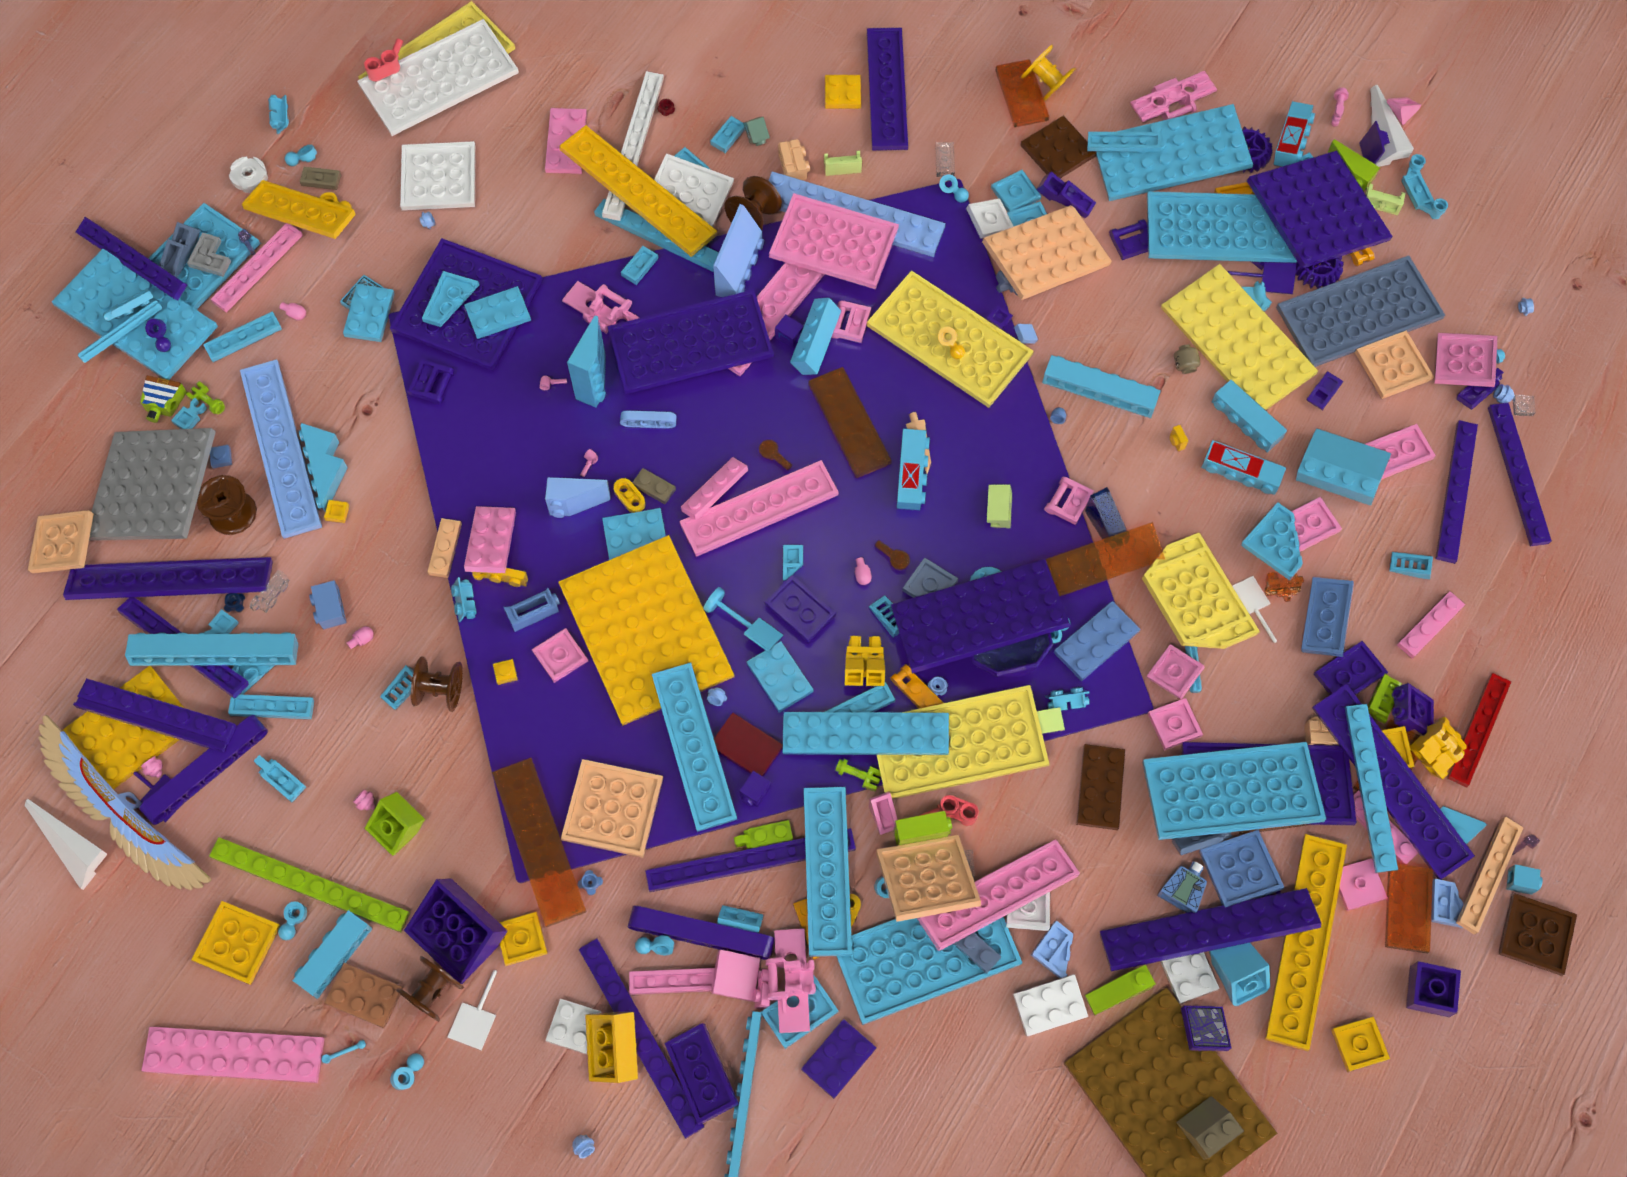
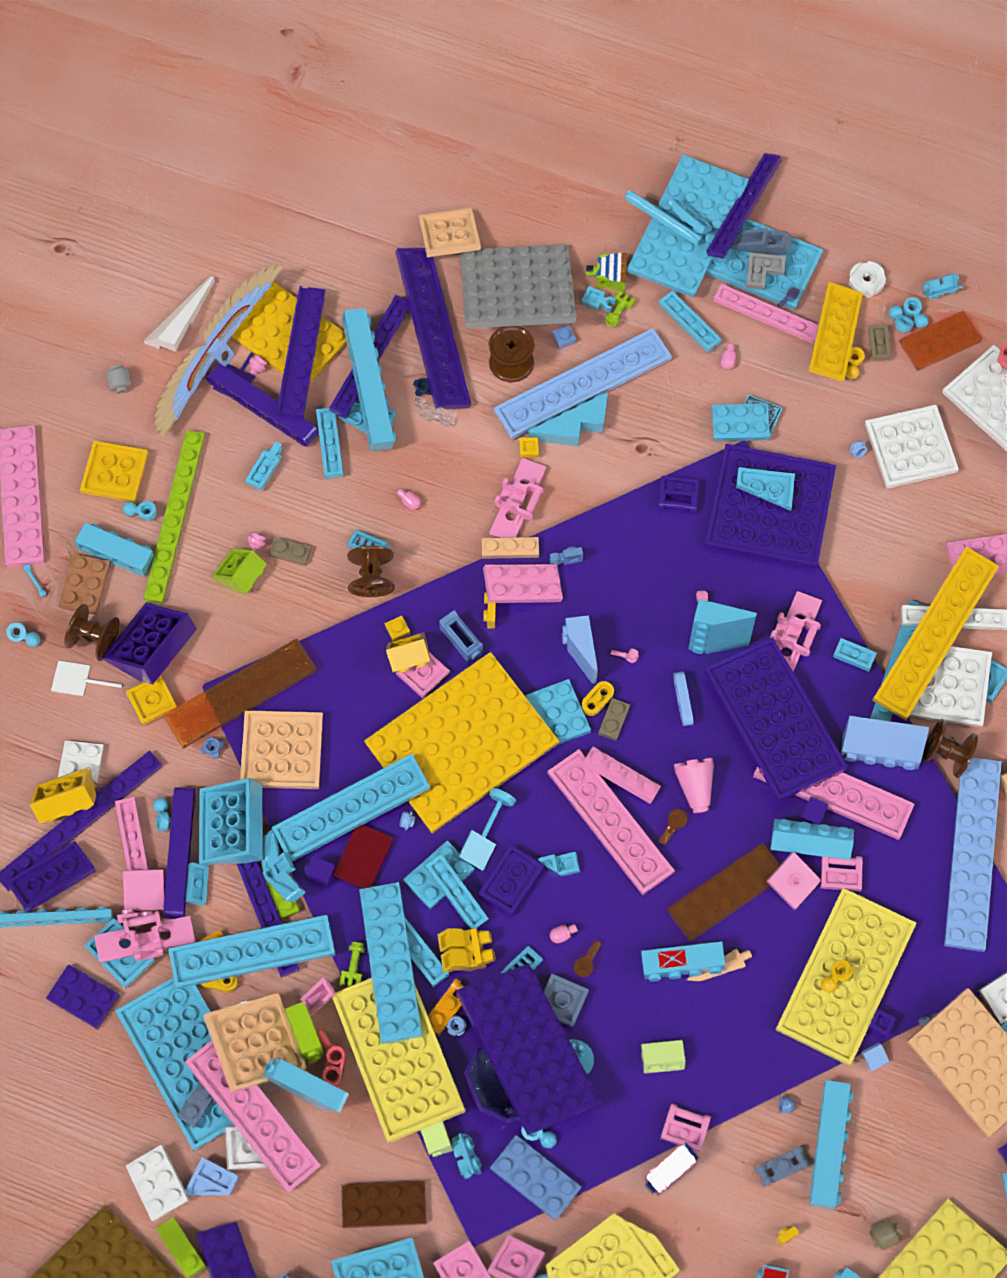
camera: 80 degrees right, 0 degrees up
(121, 921) = (118, 378): none -> light grey head
(162, 343) = (669, 246): dark purple plate -> none
(222, 623) = (398, 382): medium azure plate -> none
(291, 138) = (920, 320): none -> medium azure plate
(328, 605) = (434, 463): medium blue brick -> none
(334, 129) = (940, 340): none -> clear orange plate
(386, 768) = (290, 551): none -> dark tan plate
(387, 536) = (513, 497): none -> bright pink piece
(463, 607) = (453, 578): medium azure hinge -> none
(470, 491) = (569, 556): none -> medium blue plate
(497, 312) = (764, 534): medium azure plate -> none
(537, 661) = (408, 652): none -> yellow slope
(683, 871) = (230, 823): none -> medium azure slope
(738, 422) = (696, 782): none -> bright pink cone
(744, 829) = (277, 869): none -> medium azure plate
(804, 659) = (456, 892): none -> medium azure plate
(834, 241) = (928, 837): bright pink plate -> none
(851, 361) = (793, 880): none -> bright pink plate
(981, 833) = (305, 1086): none -> medium azure slope
(1105, 559) = (622, 1166): clear orange plate -> none
(1114, 430) = (782, 1167): none -> sand blue plate

